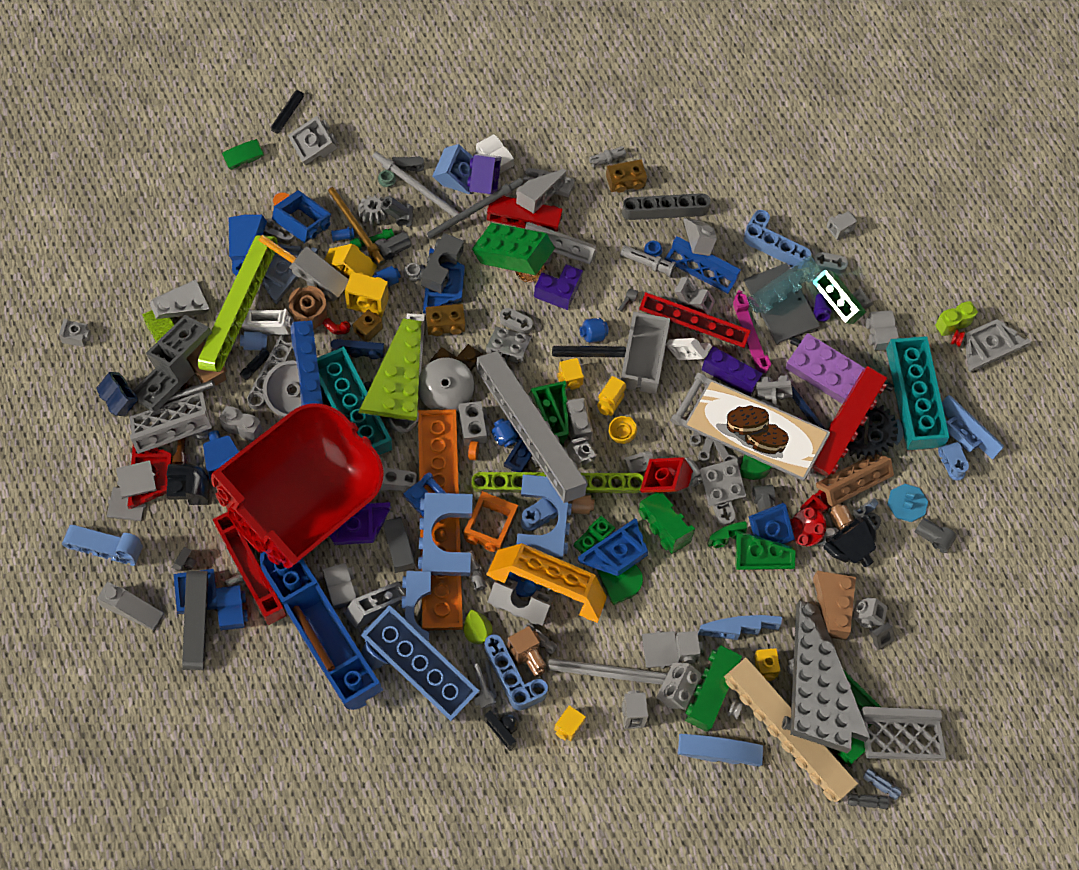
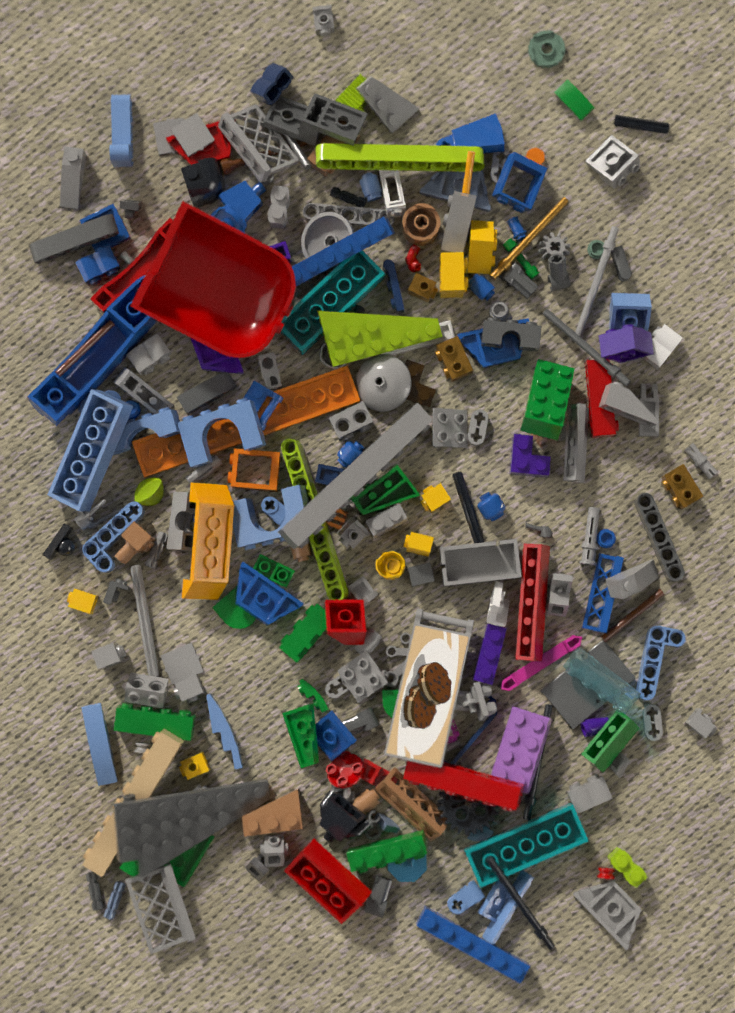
camera: 80 degrees right, 20 degrees up
(185, 172) = (542, 59): none -> sand green tile
(473, 450) = (323, 431): orange tile -> none
(569, 692) = (112, 594): none -> dark grey bracket
(640, 405) = (421, 574): none -> dark grey panel
(731, 253) = (632, 615): none -> reddish brown bar
(895, 510) = (386, 851): none -> green brick
(911, 570) = (328, 881): none -> red brick
(988, 475) = (472, 944): none -> blue arch
(997, 406) = (539, 930): none -> black bar

